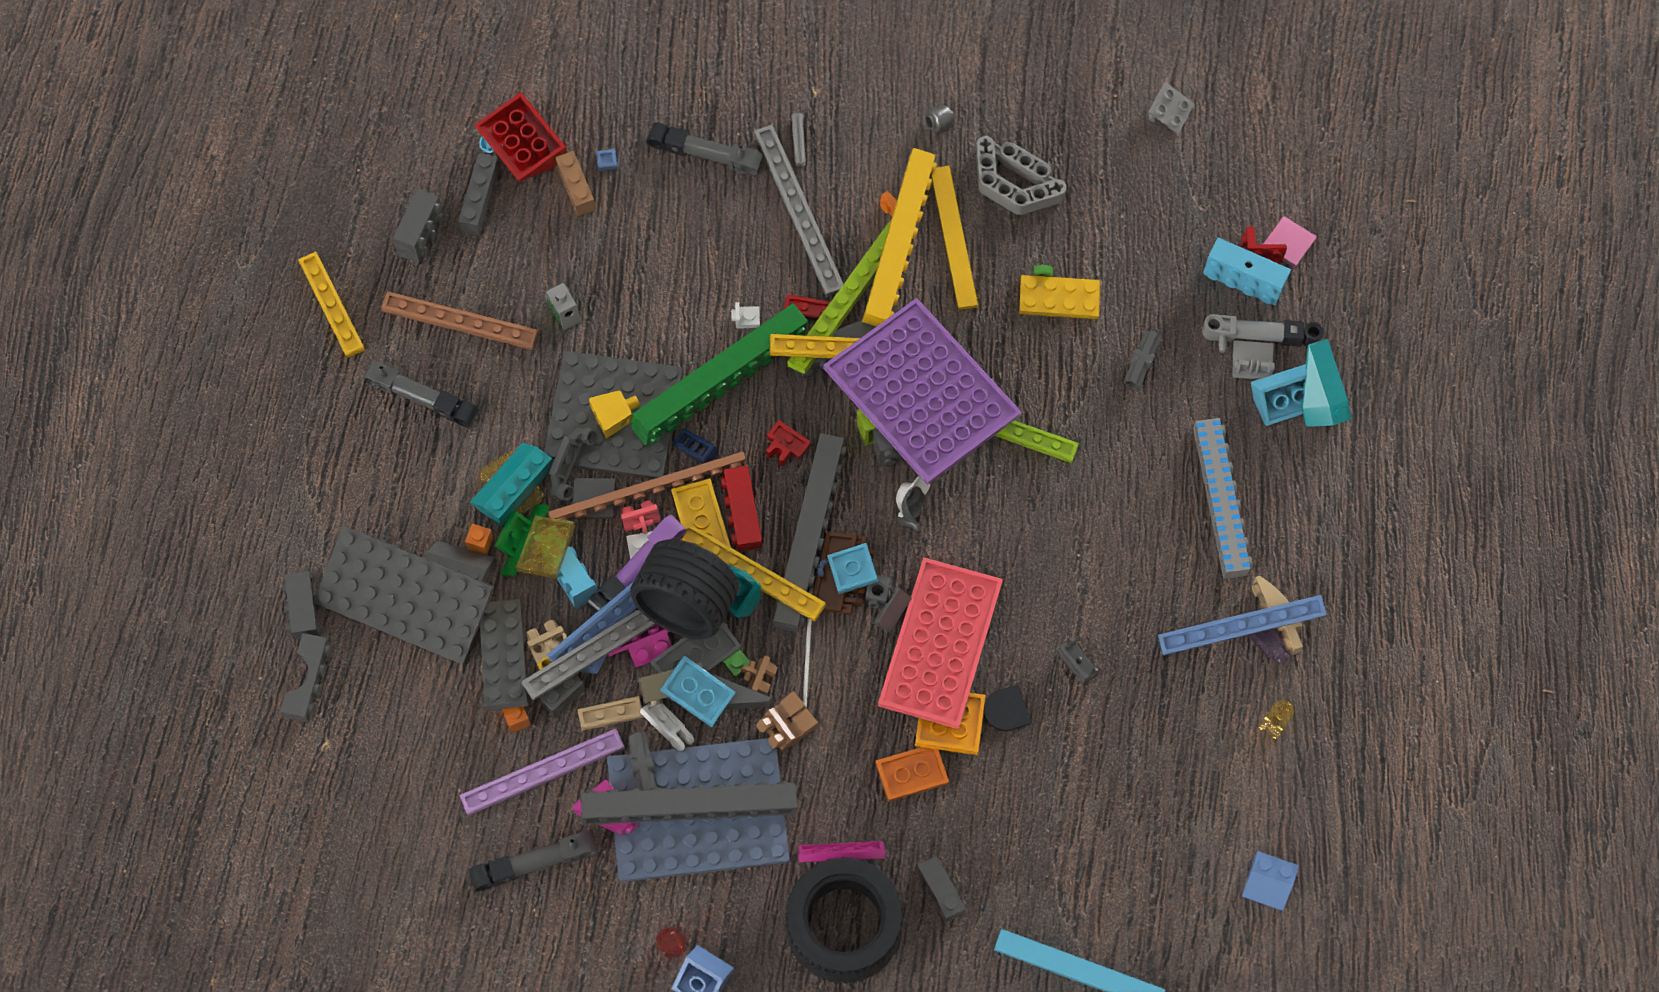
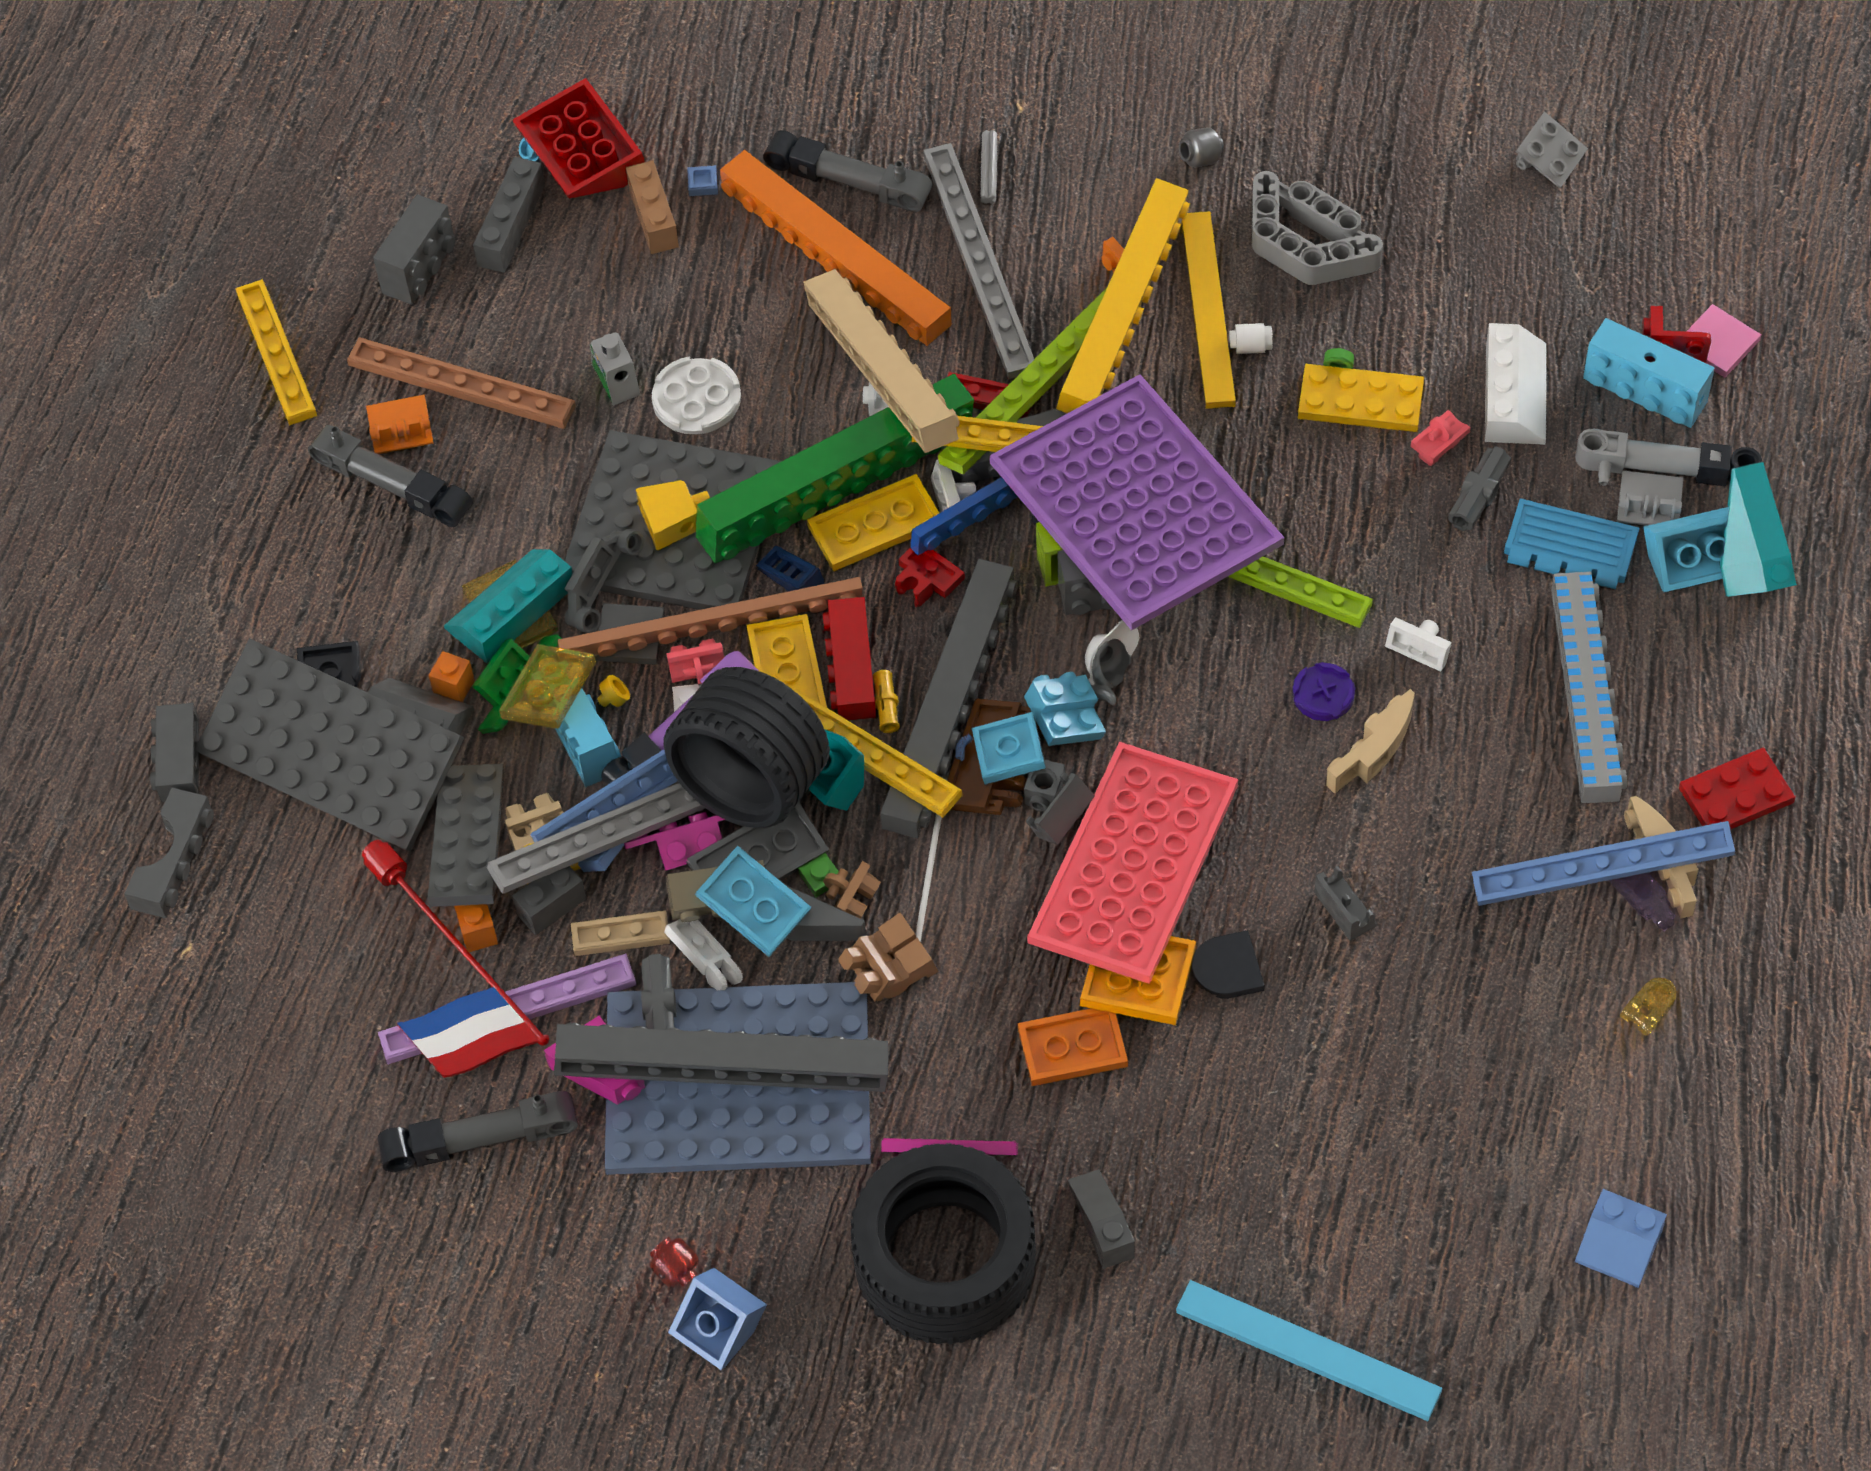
camera: 10 degrees right, 10 degrees down
(397, 532) = (334, 659): none -> black tile
(422, 354) = (399, 424): none -> orange hinge
(520, 788) = (471, 1027): none -> flag
(587, 542) = (613, 692): none -> yellow tile
(619, 320) = (696, 395): none -> white tile
(701, 206) = (835, 247): none -> orange brick
(744, 297) = (882, 361): none -> tan brick
(748, 408) = (872, 522): none -> yellow plate
(768, 537) = (886, 701): none -> yellow pin
(796, 384) = (946, 489): none -> white tile
(803, 404) = (961, 515): none -> blue plate
(886, 536) = (1065, 709): none -> medium azure plate
(984, 258) = (1251, 338): none -> white brick
(1052, 511) = (1323, 691): none -> dark purple tile
(1092, 544) = (1381, 740): none -> tan slope
(1111, 473) = (1419, 642): none -> white tile
(1114, 325) = (1439, 437): none -> coral hips
(1159, 283) = (1515, 386): none -> white slope
(1203, 393) = (1570, 541): none -> dark azure hinge
(1321, 565) = (1737, 790): none -> red plate

